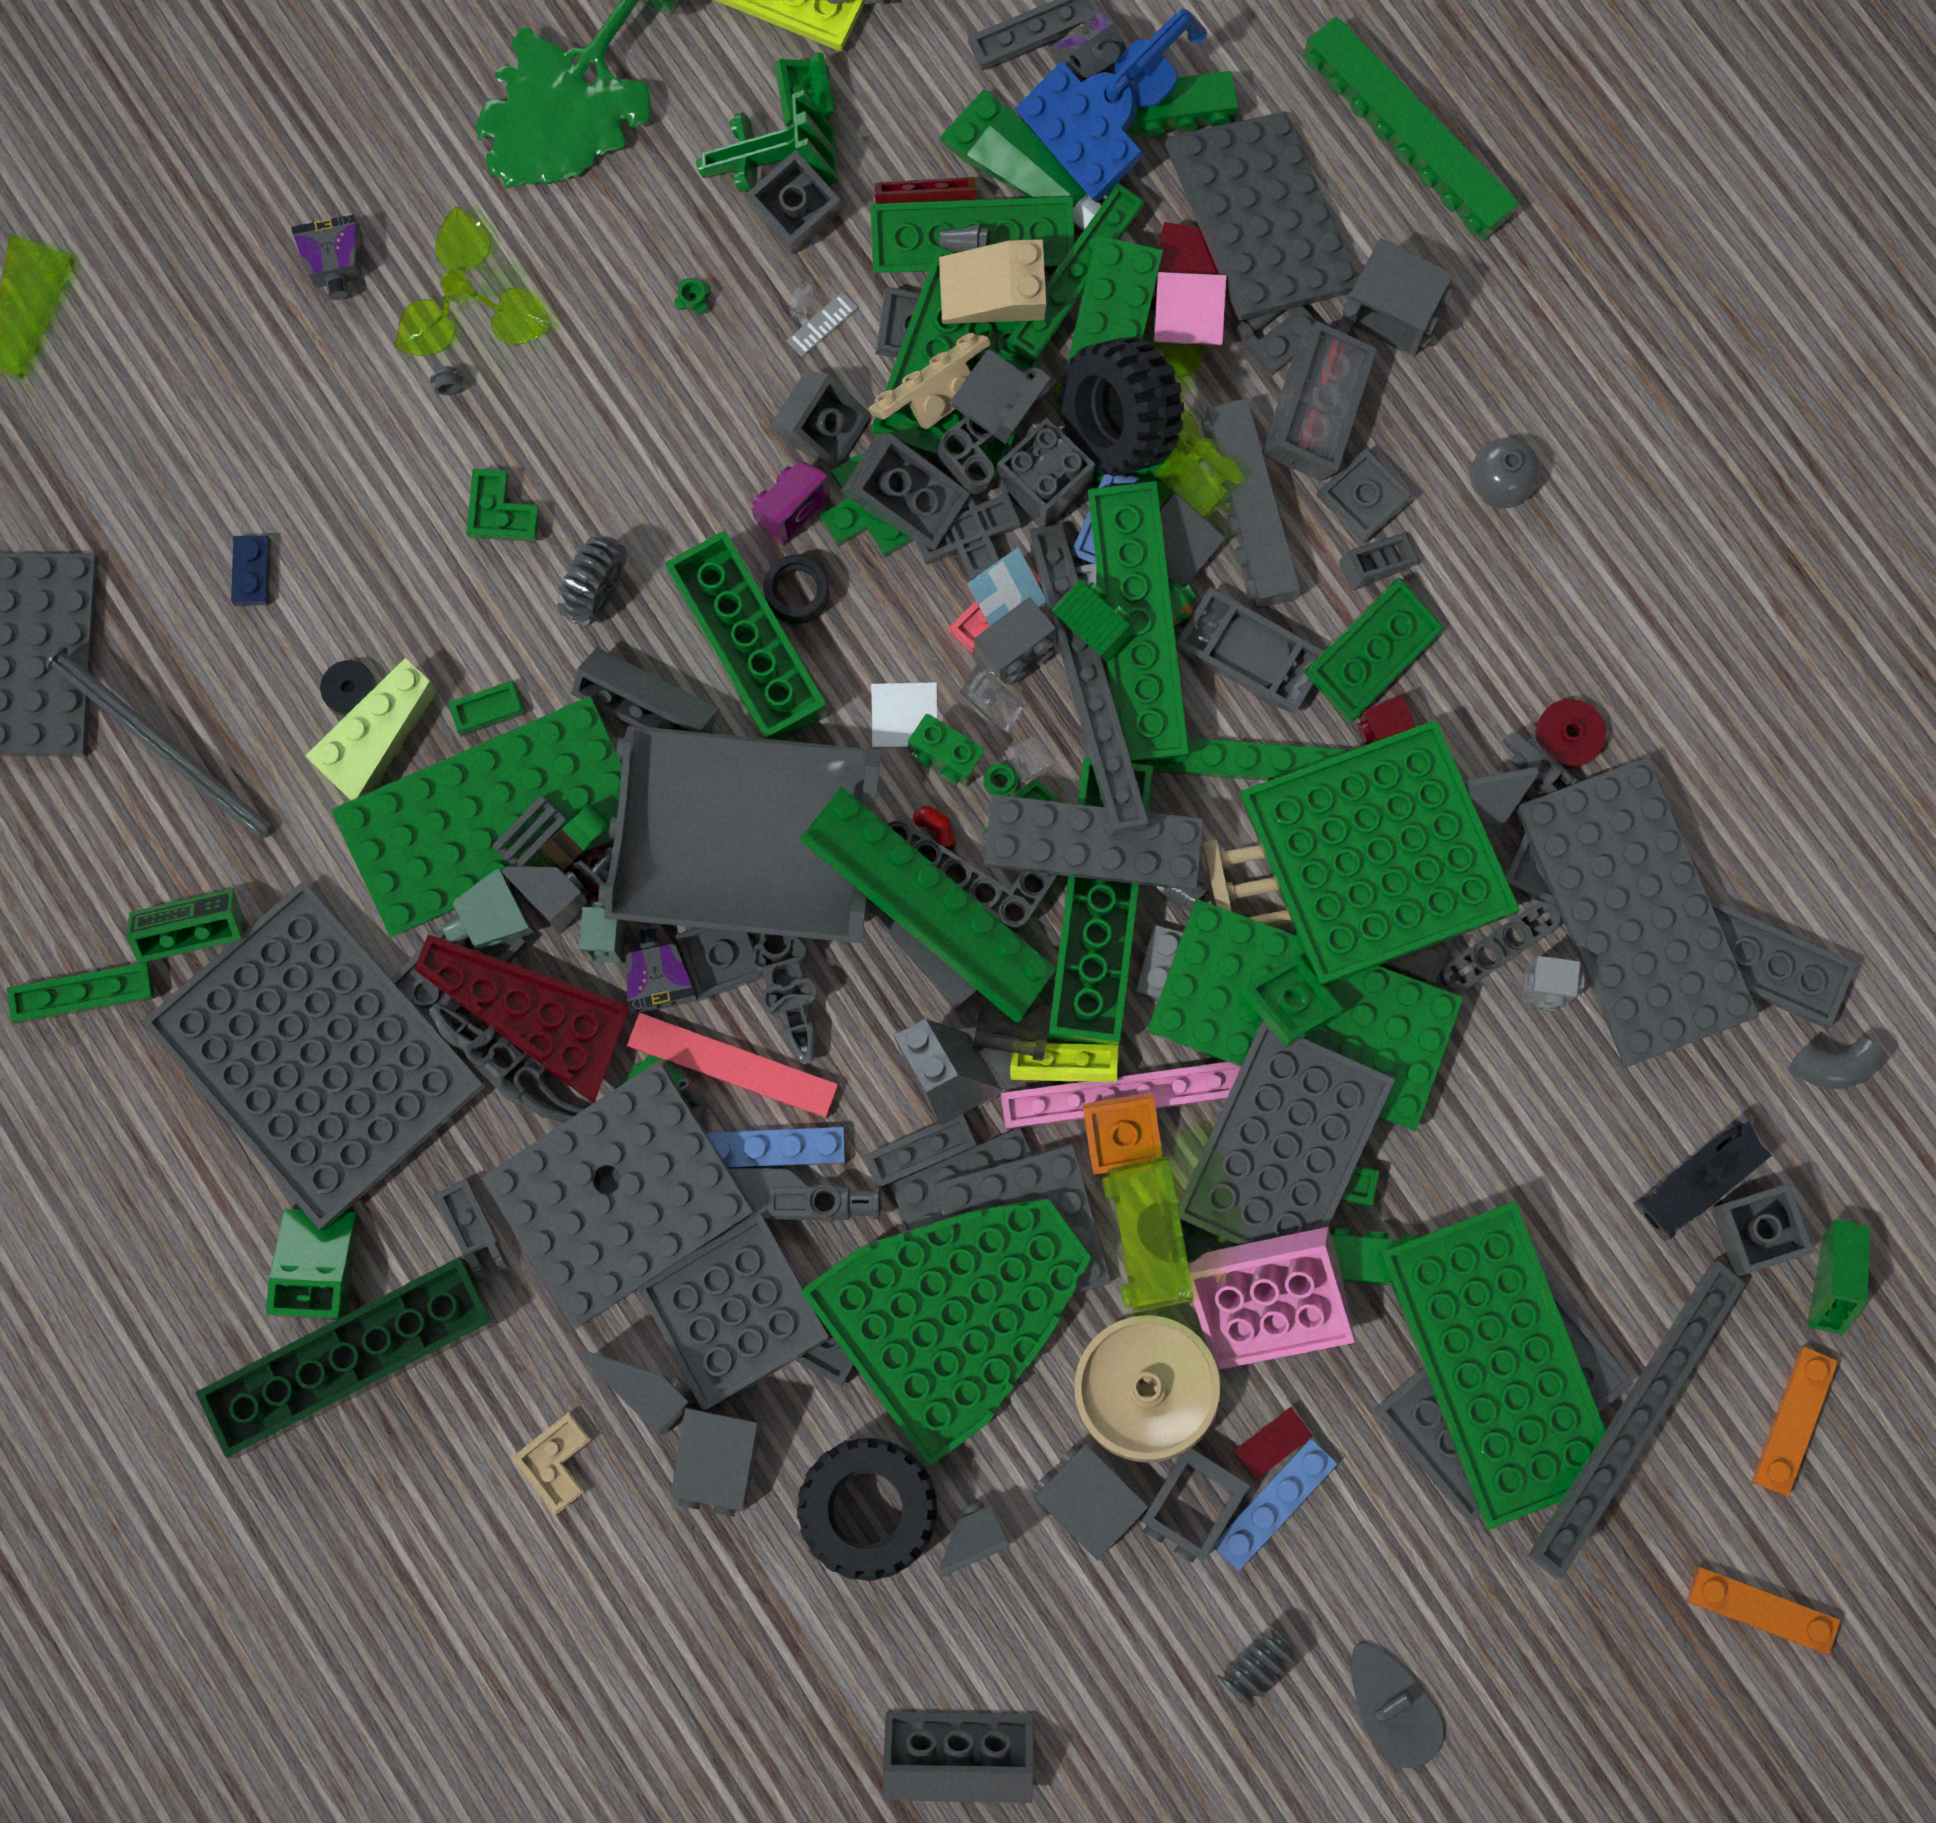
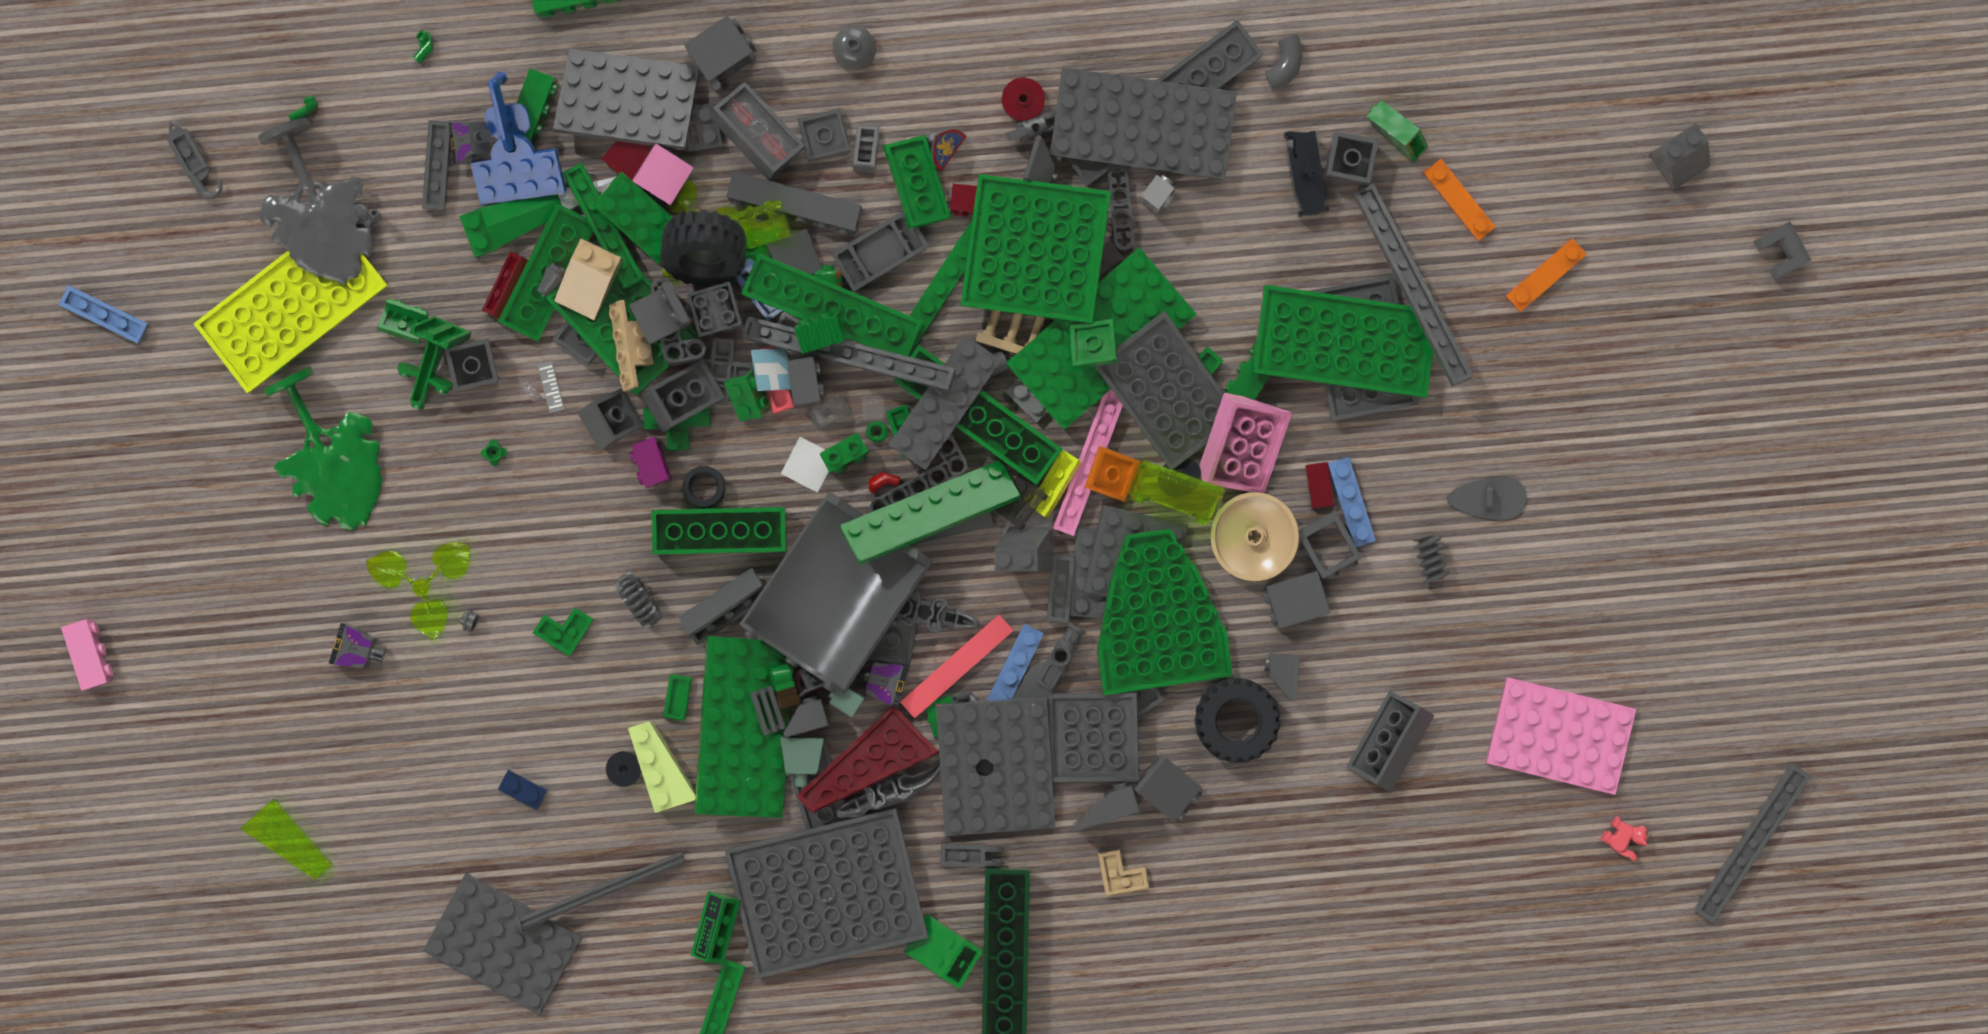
camera: 60 degrees left, 10 degrees up
(946, 580) = (745, 398): none -> green bracket
(1446, 659) = (944, 145): none -> shield

